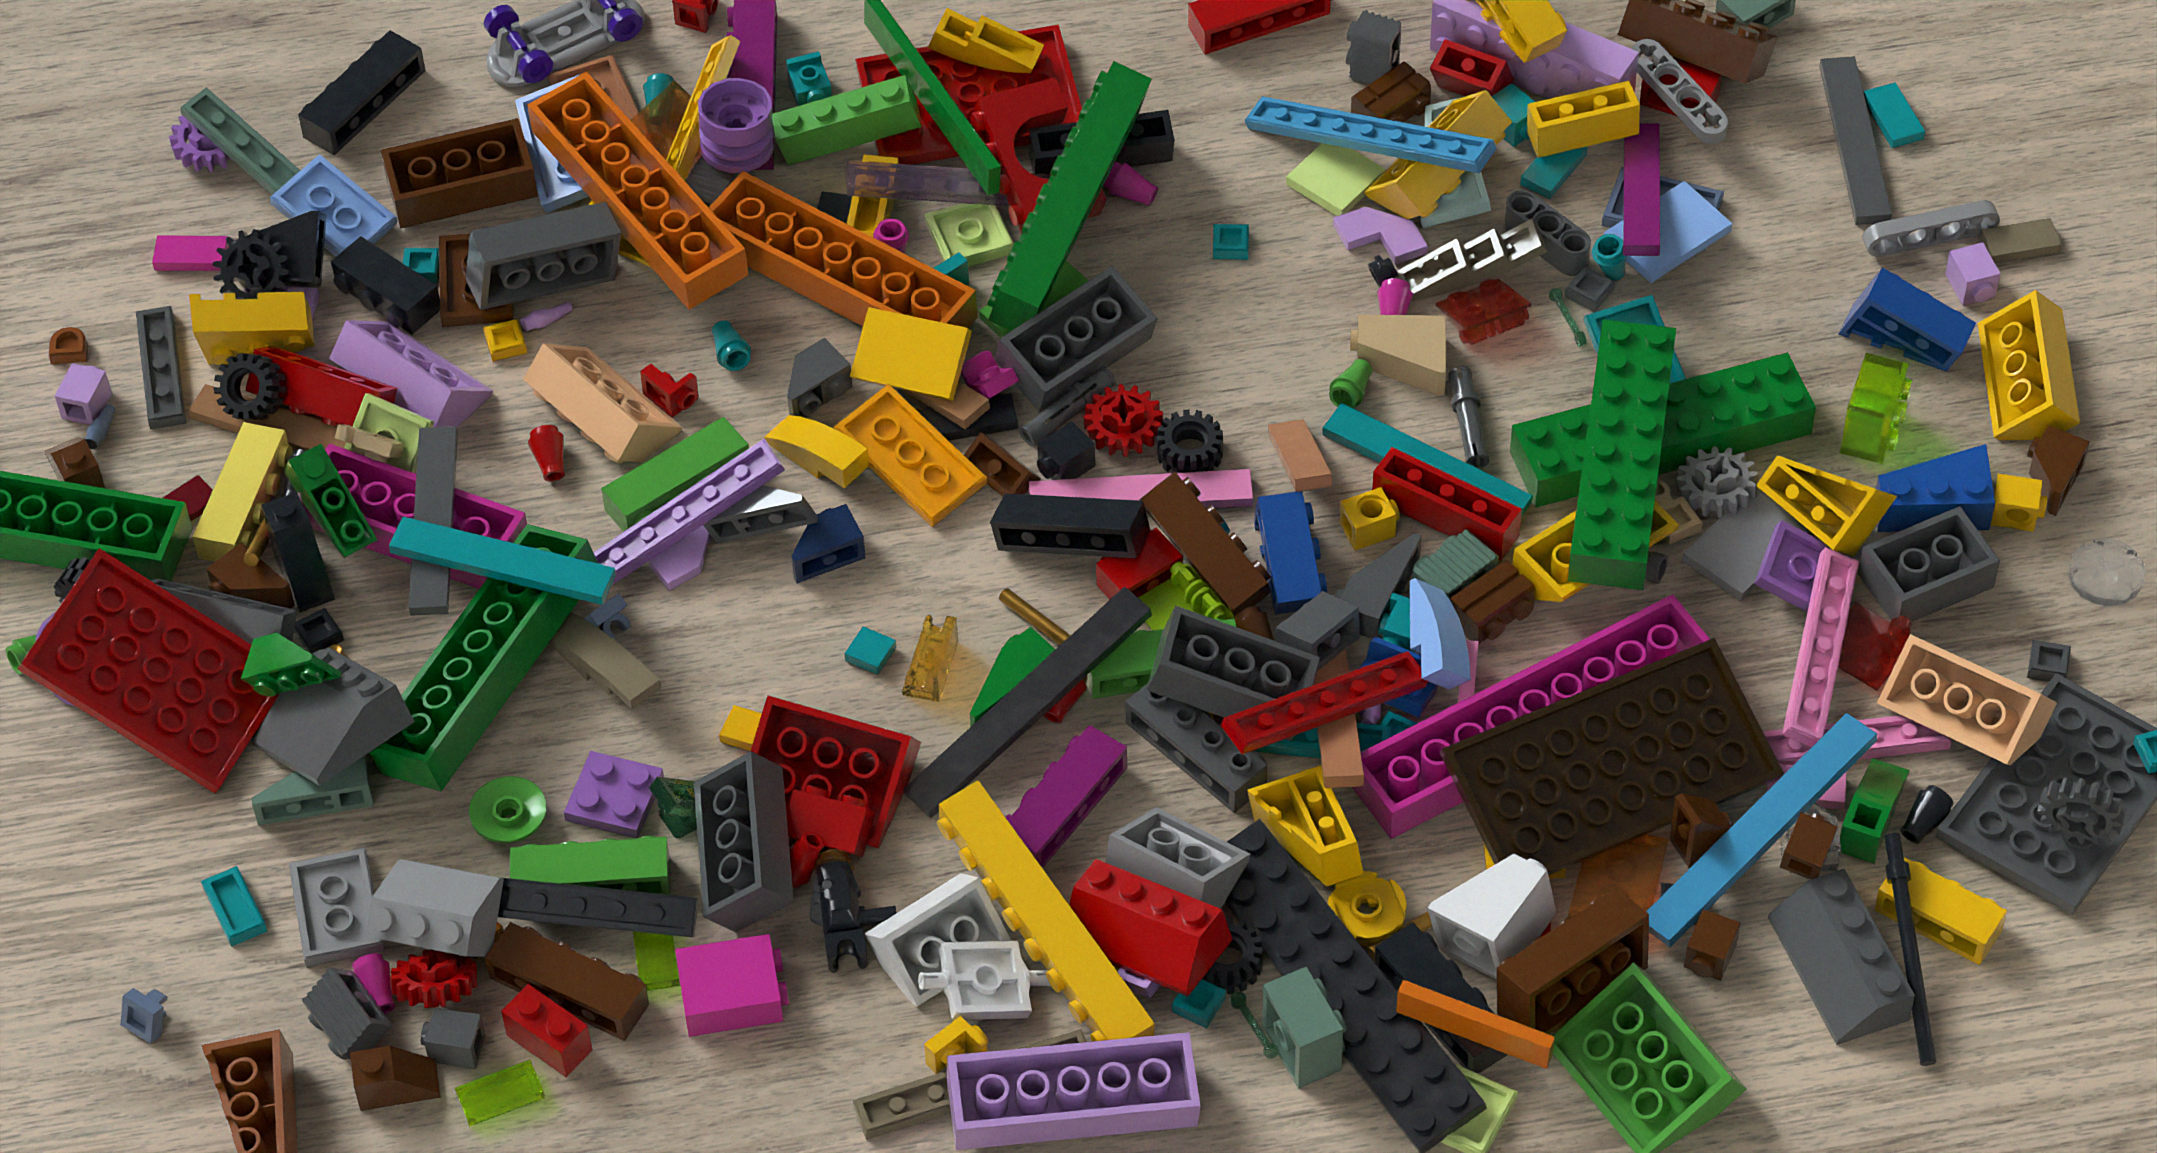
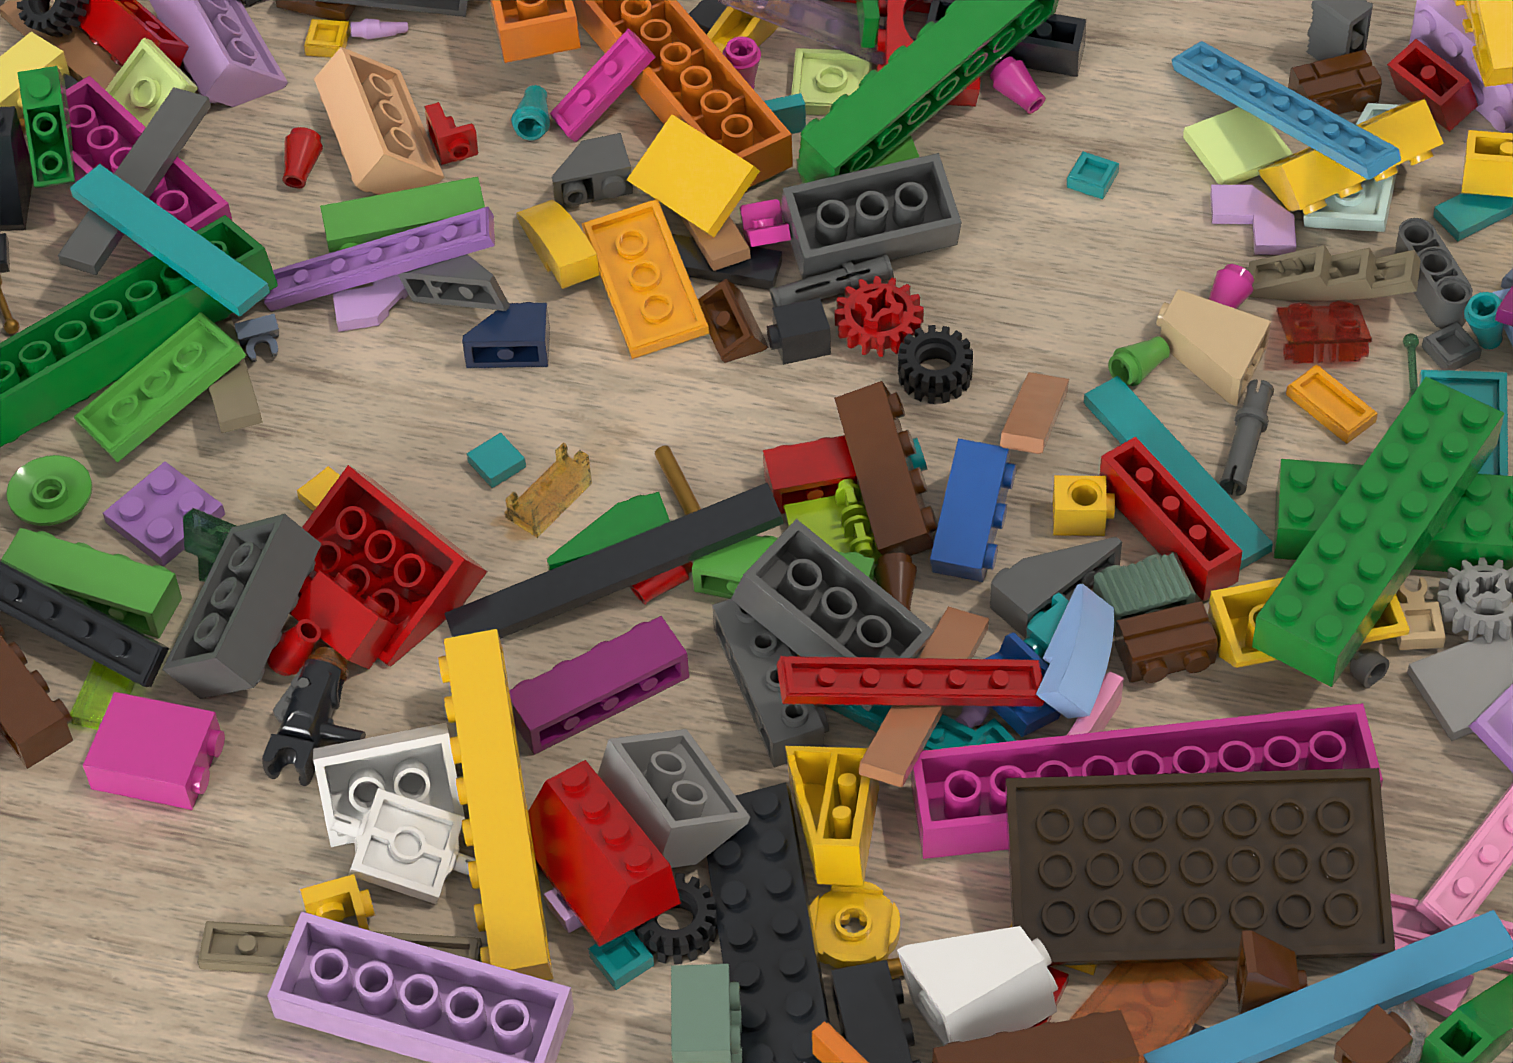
camera: 25 degrees right, 0 degrees up
(377, 446) = (128, 90): tan plate -> none
(553, 689) = (159, 386): none -> bright green tile
(784, 301) = (602, 85): none -> dark pink tile
(1070, 525) = (758, 402): black brick -> none
(1217, 488) = (819, 385): bright pink tile -> none
(1238, 1001) = (663, 974): clear green hinge -> none
(1321, 627) = (957, 603): dark grey brick -> none
(1382, 269) = (1234, 253): black plate -> none
(1514, 104) = (1454, 130): teal brick -> none
(1519, 367) = (1331, 404): none -> light orange tile

